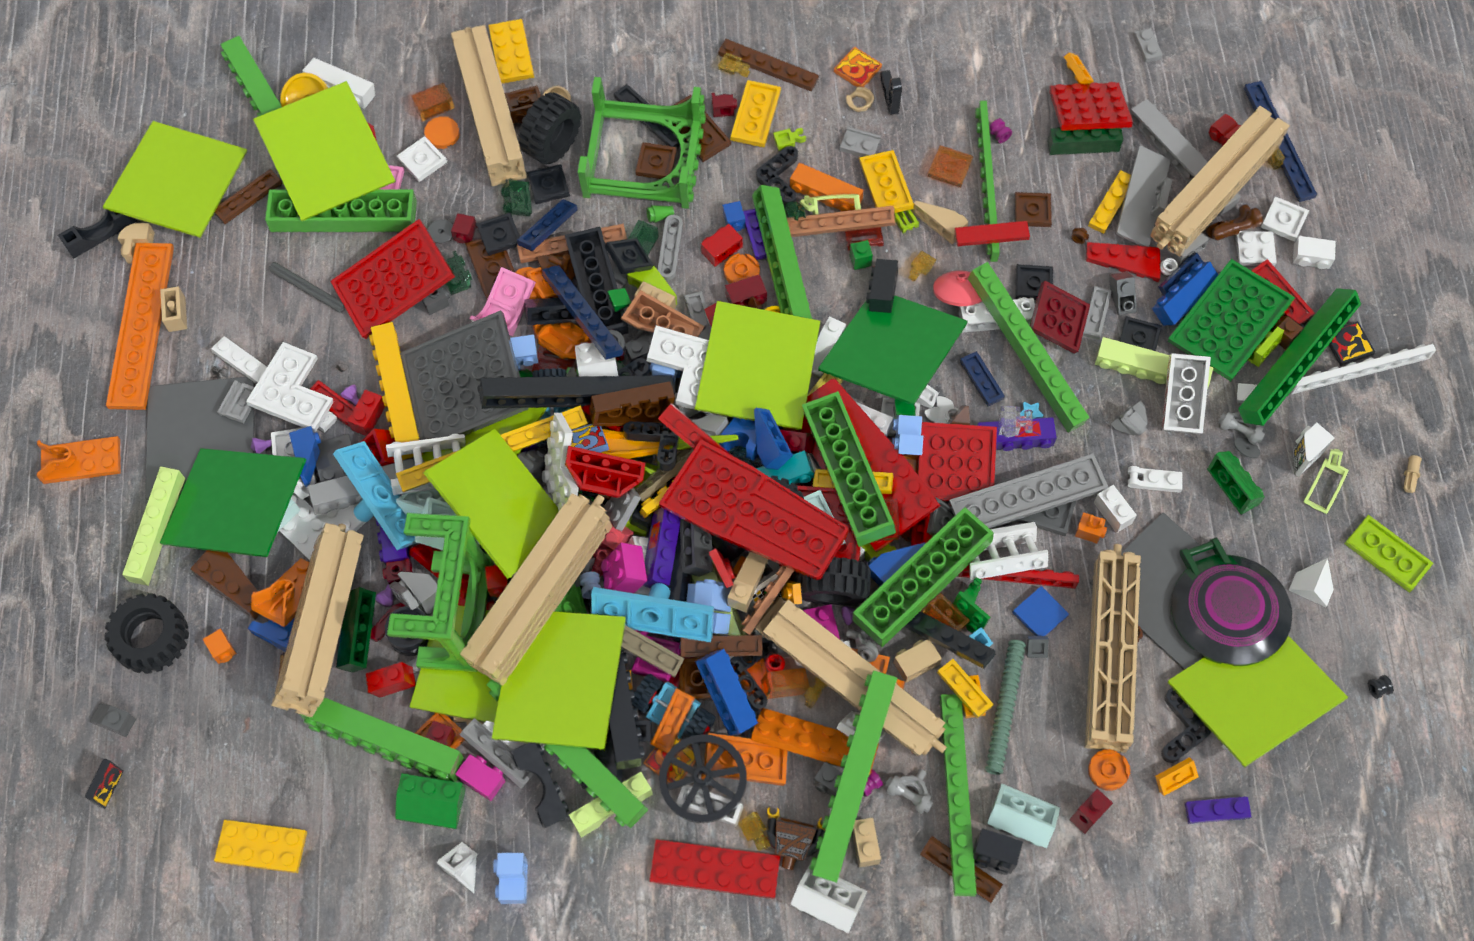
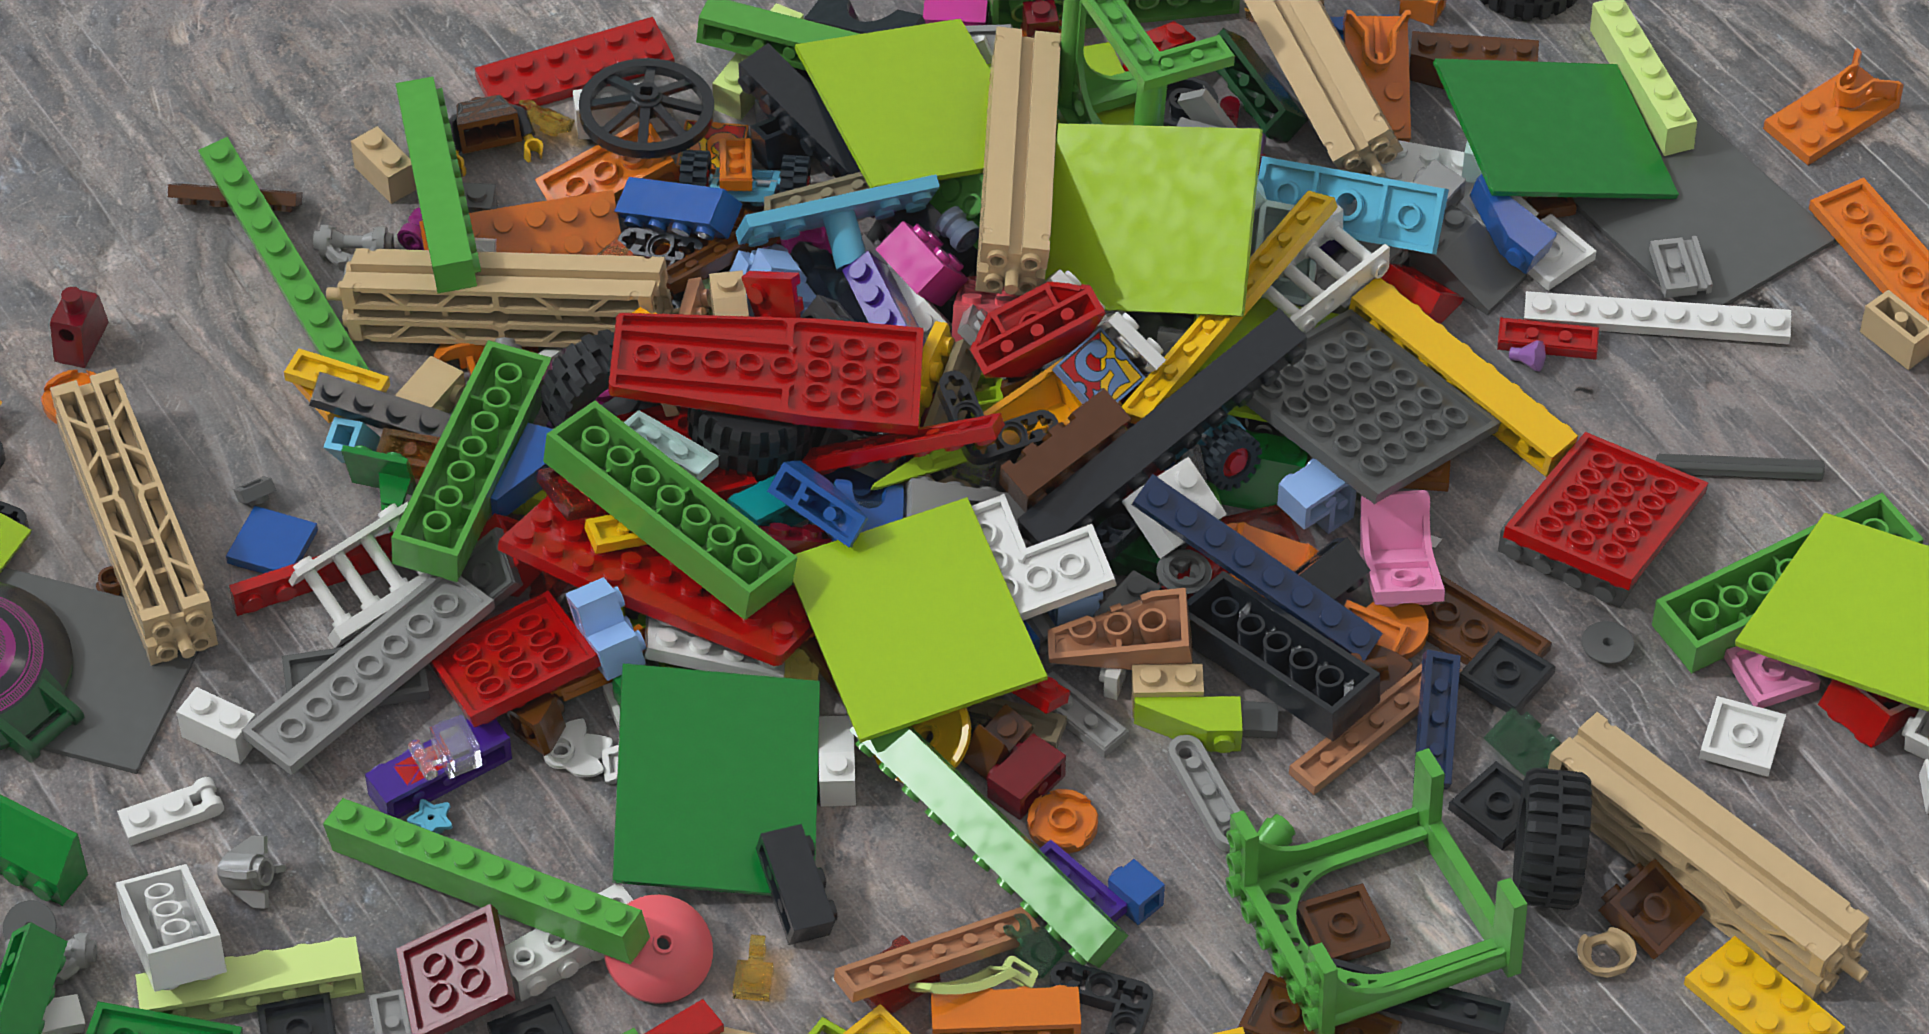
camera: 150 degrees right, 15 degrees down
(260, 445) = (1600, 232): medium lavender rock -> none
(282, 393) = (1625, 286): white plate -> none
(366, 413) = (1481, 329): red brick -> none
(432, 101) = (1815, 833): clear orange brick -> none
(442, 132) = (1754, 799): orange tile -> none
(462, 277) = (1527, 591): clear green bracket -> none
(463, 228) = (1572, 657): dark red brick -> none
(619, 298) = (1215, 624): green slope -> none
(629, 256) = (1252, 704): black tile -> none
(646, 235) = (1263, 774): clear green panel -> none
(721, 245) = (1123, 832): red brick -> none
(829, 900) = (376, 95): white slope -> none
(861, 255) = (869, 927): green brick -> none
(982, 378) = (542, 829): dark blue plate -> none
(996, 851) = (194, 218): black brick -> none
(1005, 707) = (266, 401): sand green piece -> none
(1024, 816) = (175, 288): light aqua slope -> none
(1091, 528) = (245, 682): orange brick -> none

